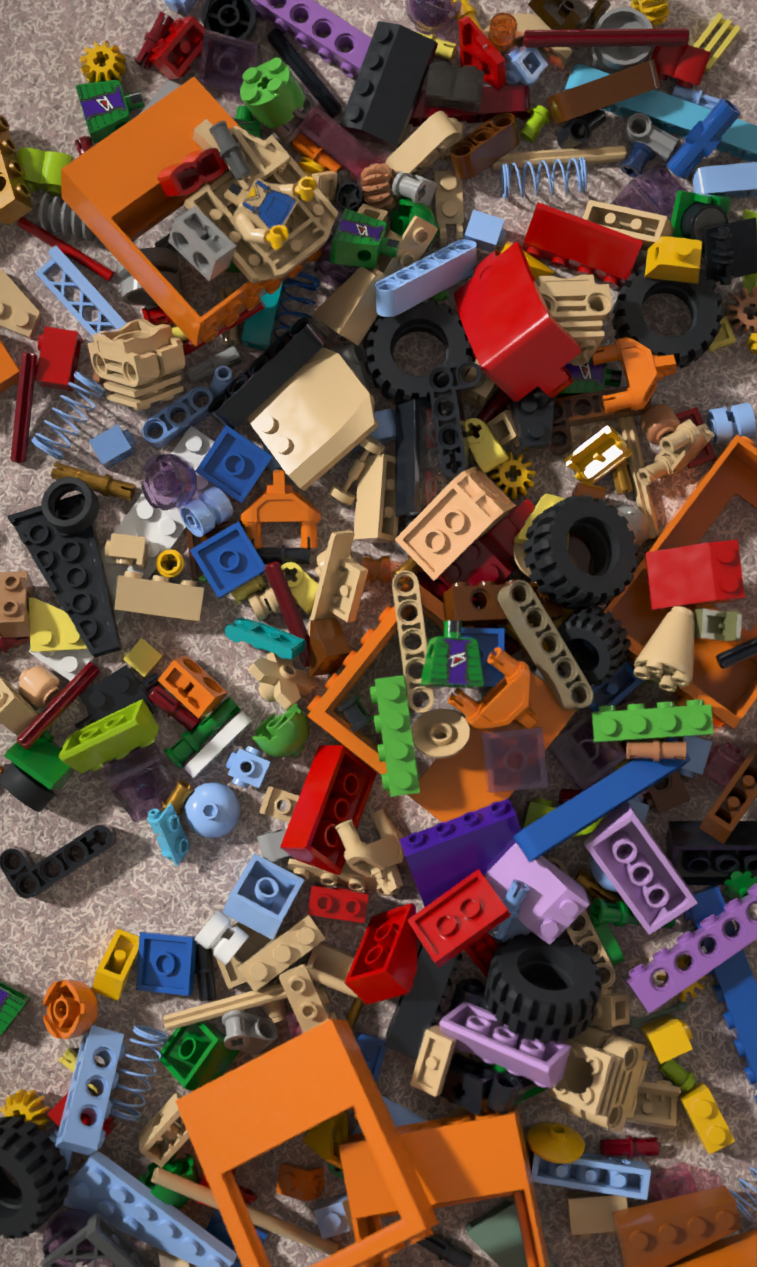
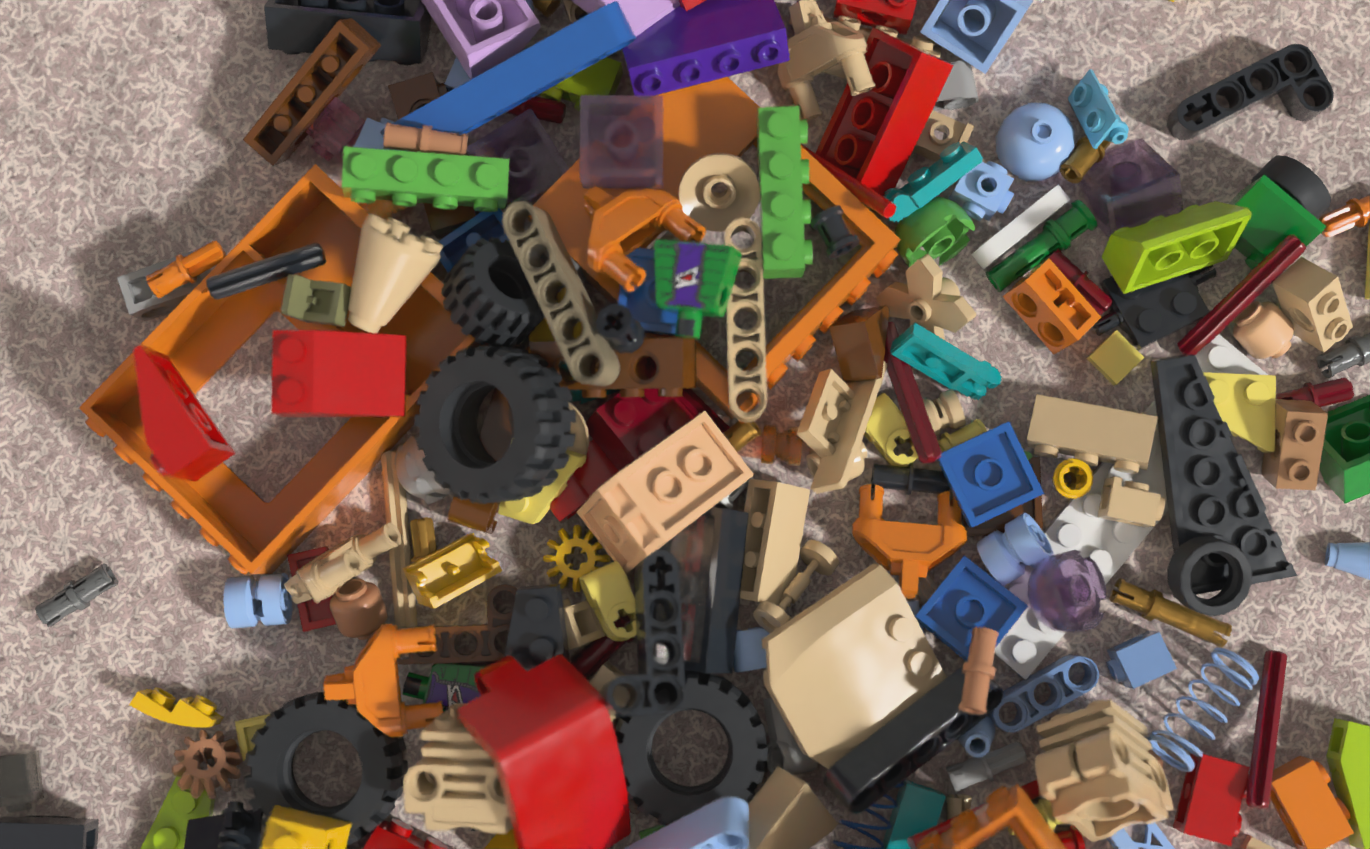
camera: 170 degrees left, 0 degrees up
(227, 420) = (978, 671): none -> nougat pin
(289, 764) = (931, 181): none -> teal hinge
(348, 756) = (858, 189): none -> red bar
(507, 619) = (624, 325): none -> black bush

